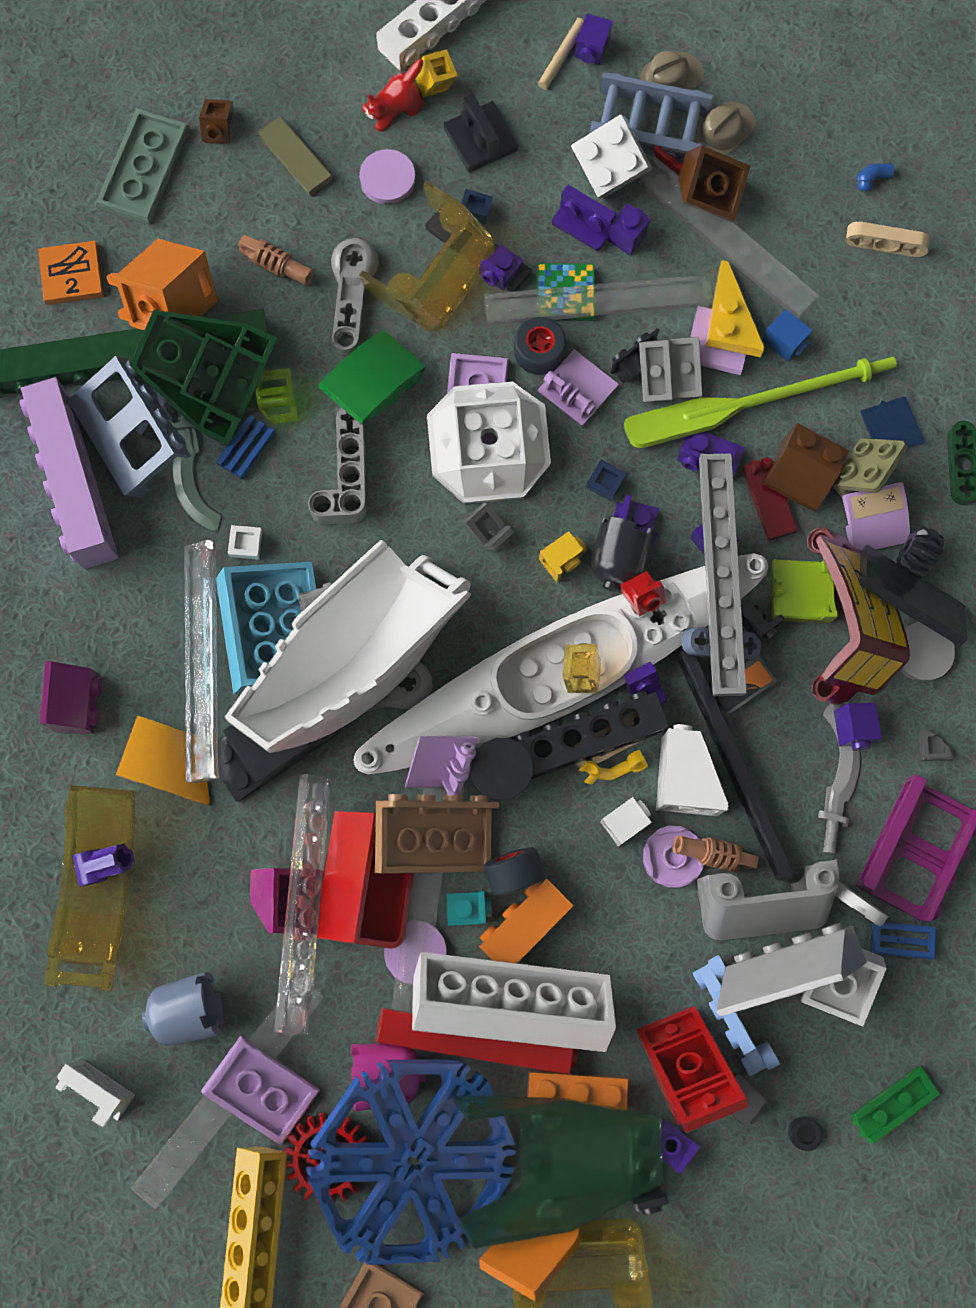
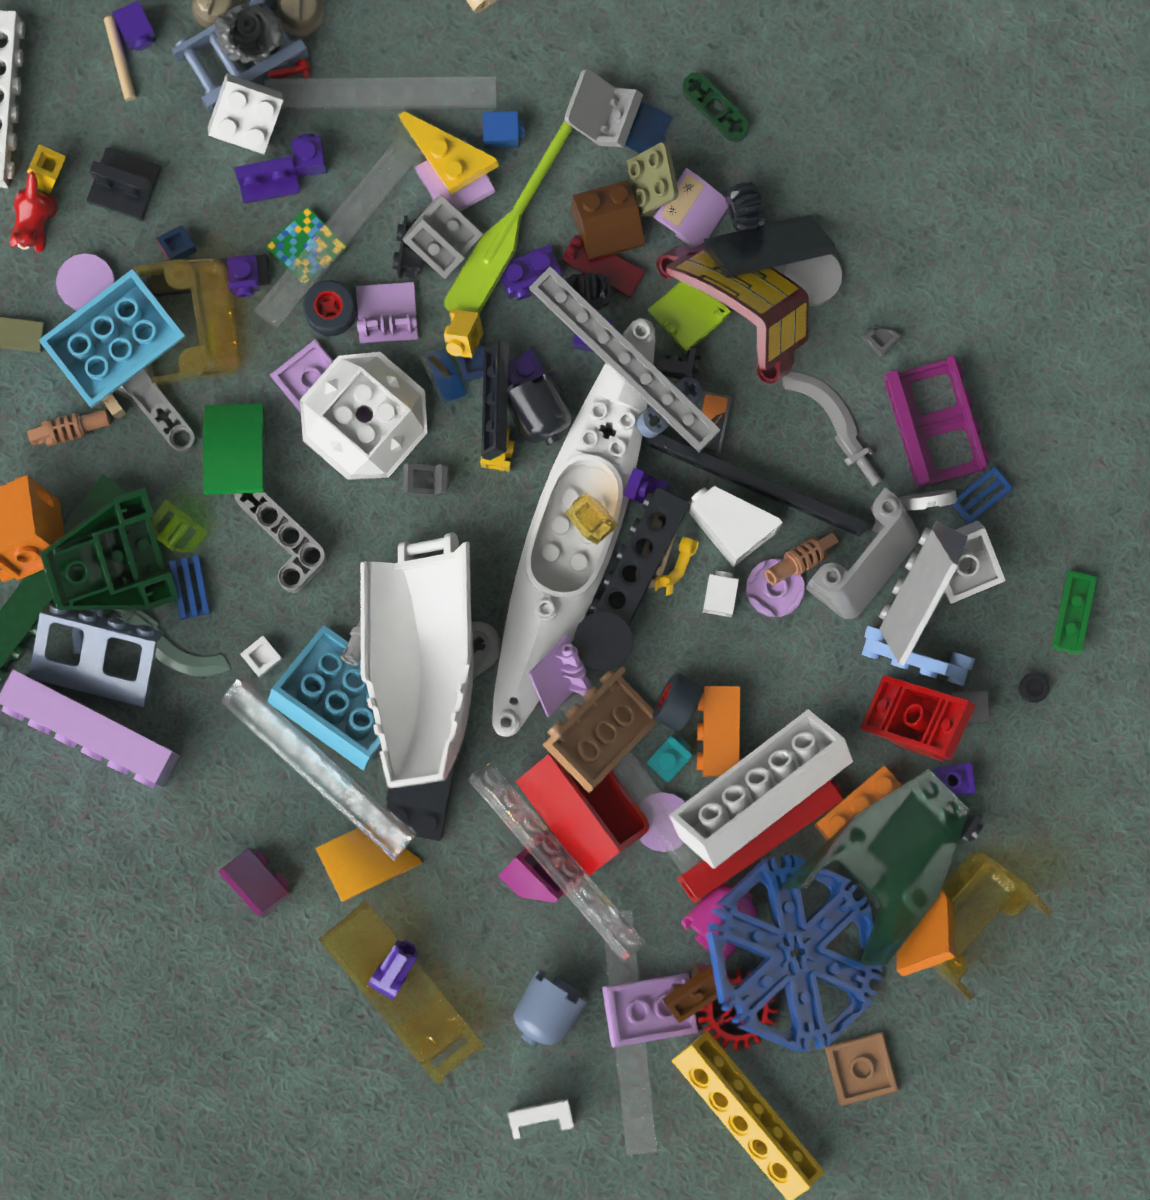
camera: 40 degrees left, 5 degrees up
(301, 1114) = (692, 996): none -> reddish brown tile
(320, 274) = (114, 407): none -> tan tile
(364, 221) = (111, 338): none -> medium azure slope
(575, 470) = (444, 377): none -> slope
(594, 515) = (495, 400): none -> black tile
(619, 449) = (463, 333): none -> yellow brick
(643, 593) = (583, 425): red bracket -> none
(660, 110) = (249, 40): none -> dark grey hair
(713, 182) = (338, 64): reddish brown slope -> none
(748, 504) = (592, 287): none -> black gear
(857, 725) = (815, 375): dark purple brick -> none
(875, 385) = (601, 110): none -> light grey bracket

